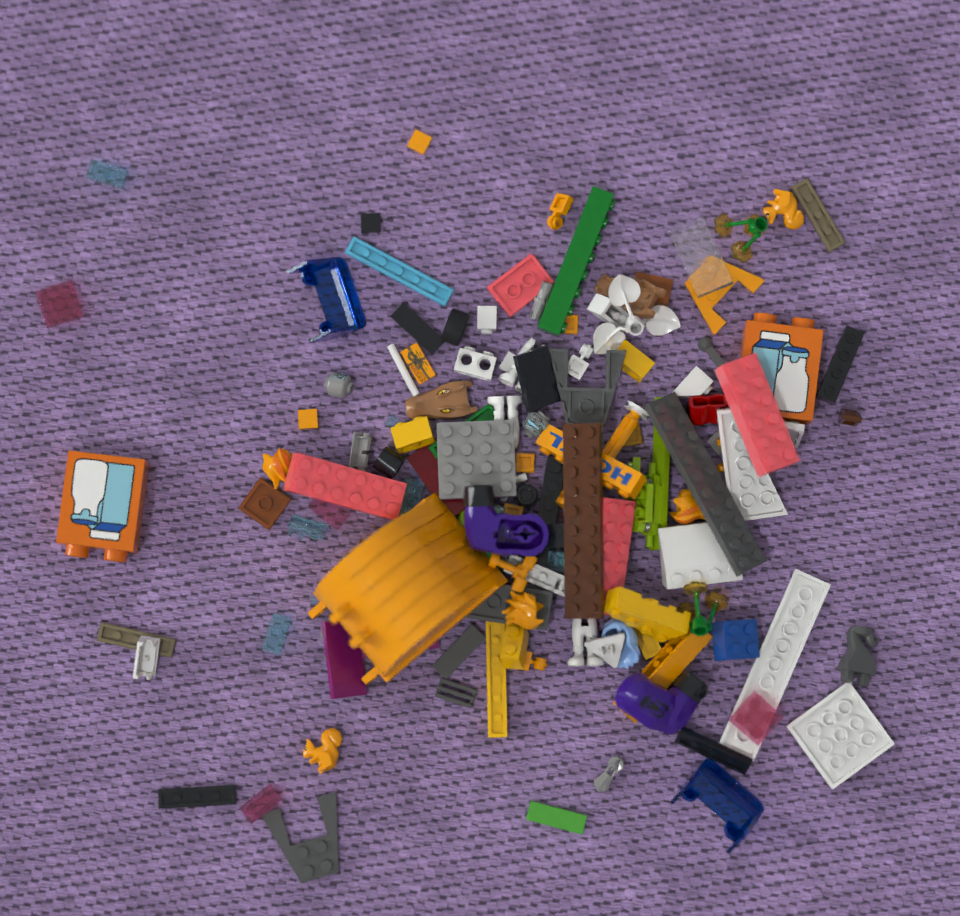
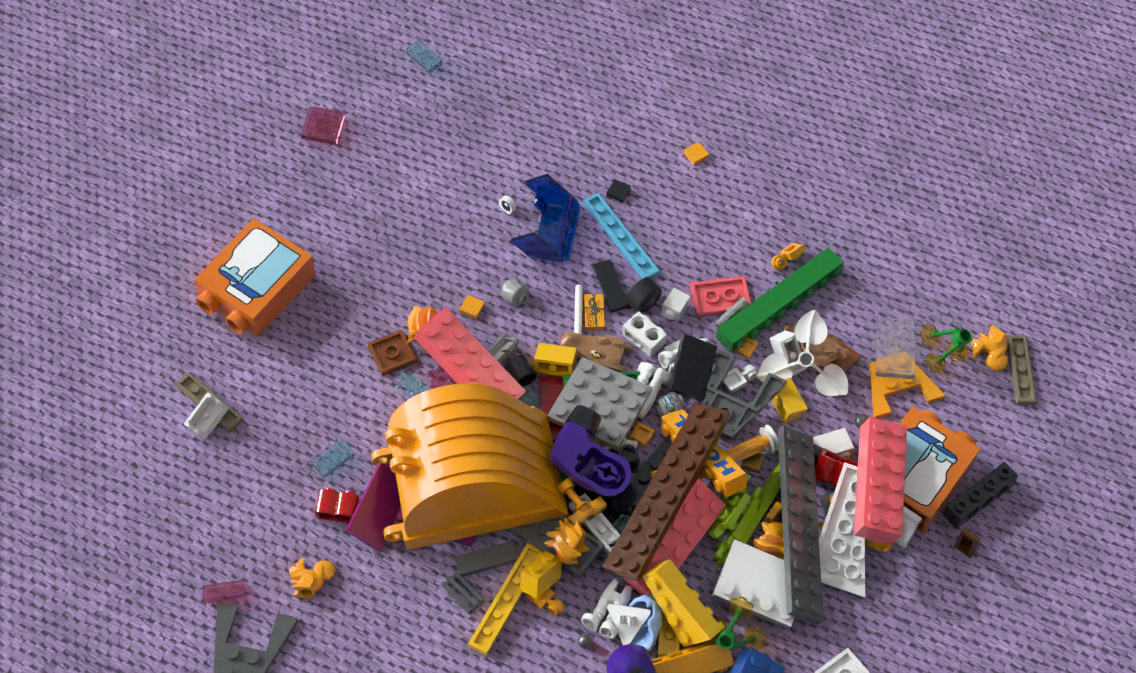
camera: 25 degrees right, 25 degrees down
(197, 796) = (171, 556): black tile -> none
(279, 296) = (507, 204): none -> white tile
(307, 676) = (336, 505): none -> red brick
(581, 680) = (585, 641): none -> piece
(676, 477) = (774, 513): none -> light orange tile

